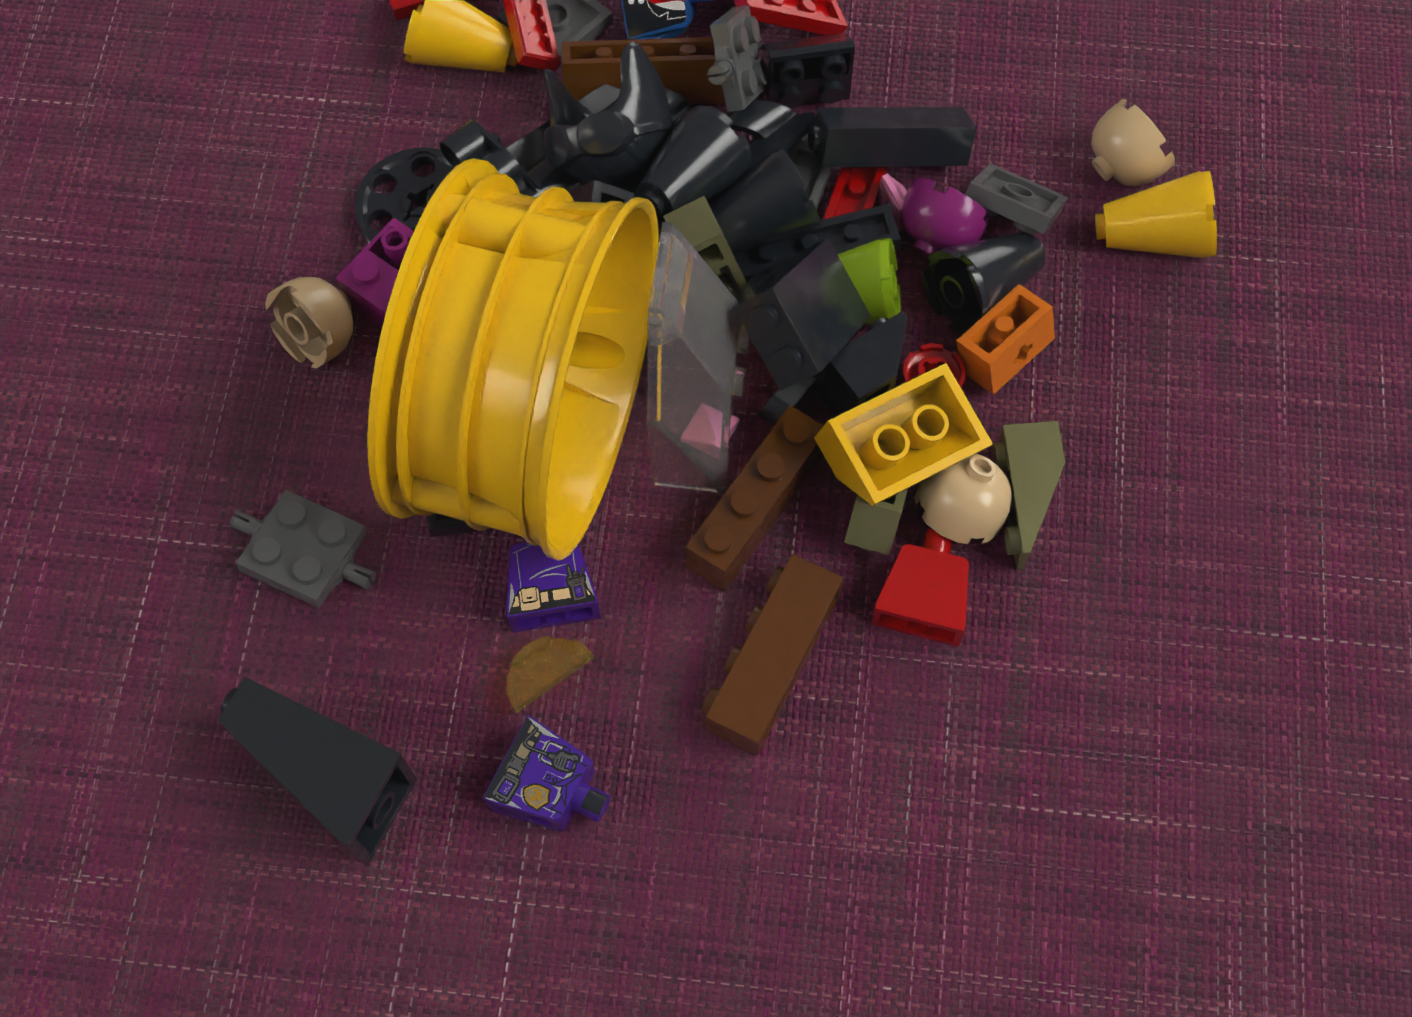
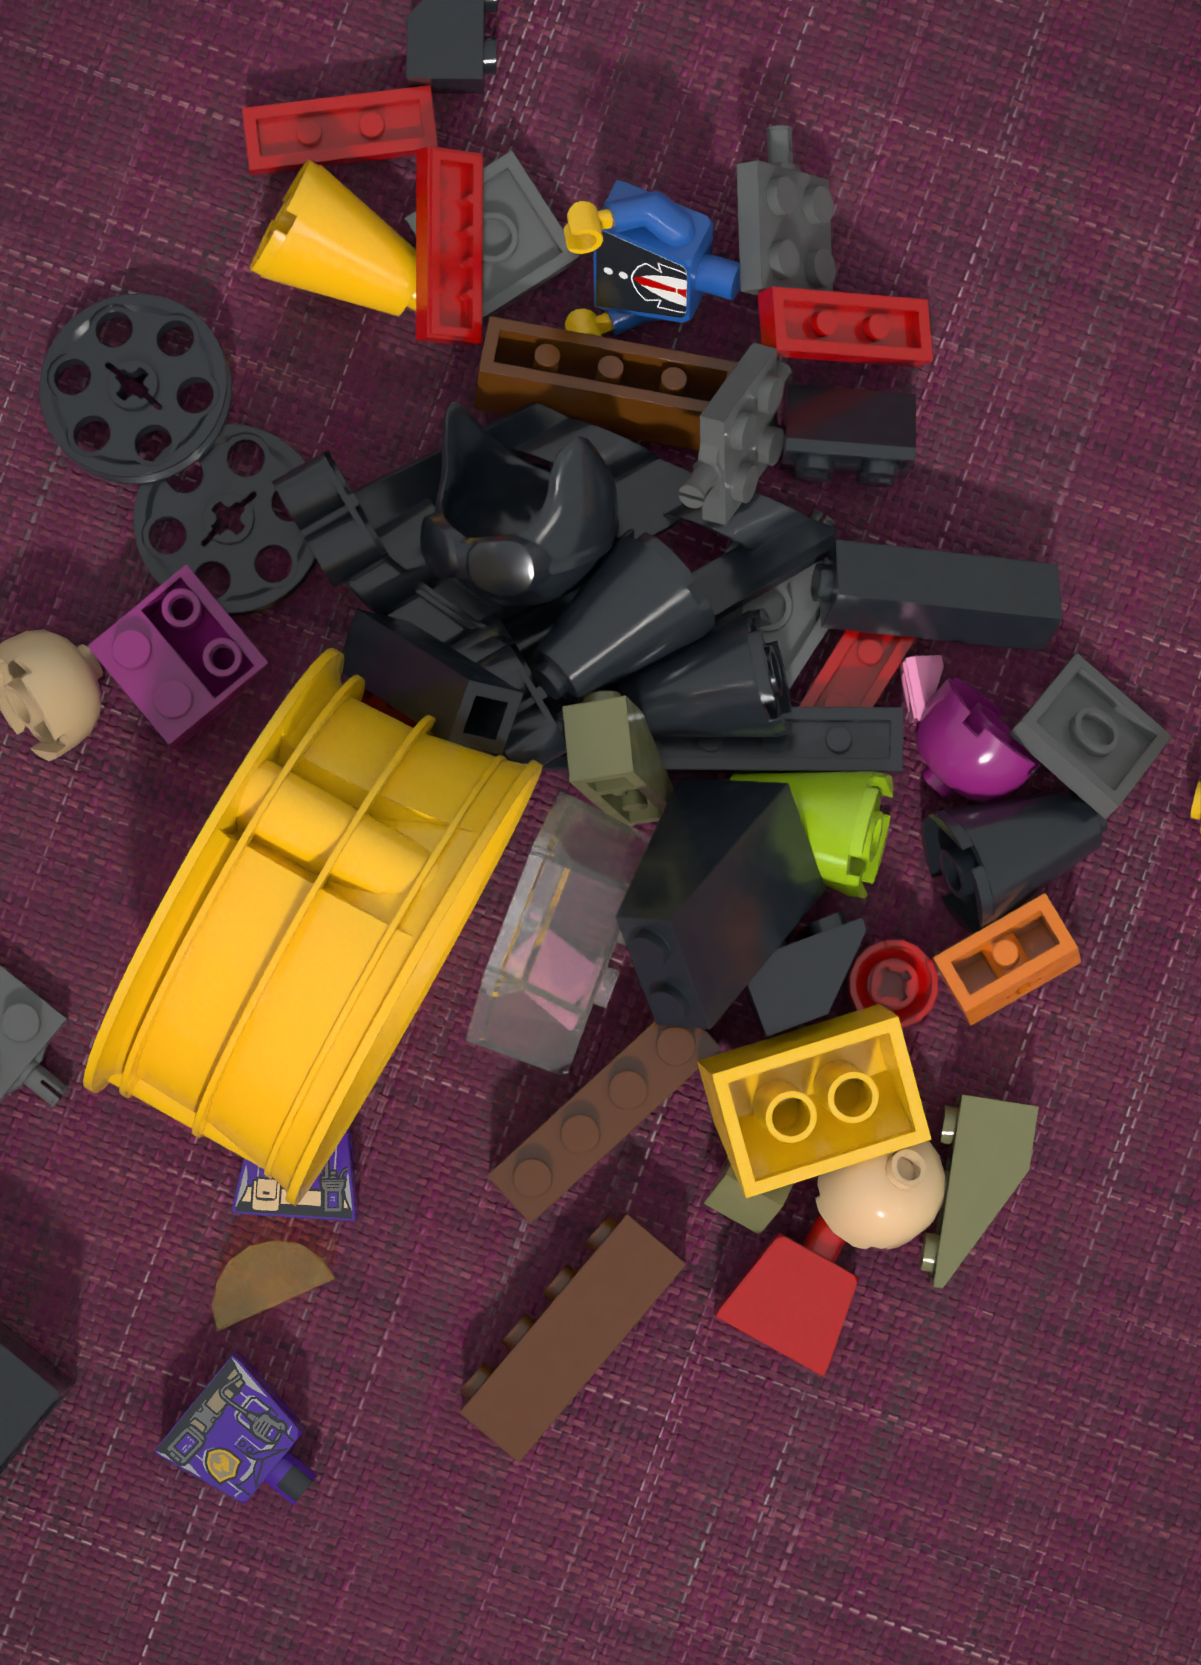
camera: 10 degrees right, 20 degrees up
(332, 143) = (137, 358): none -> black wedge

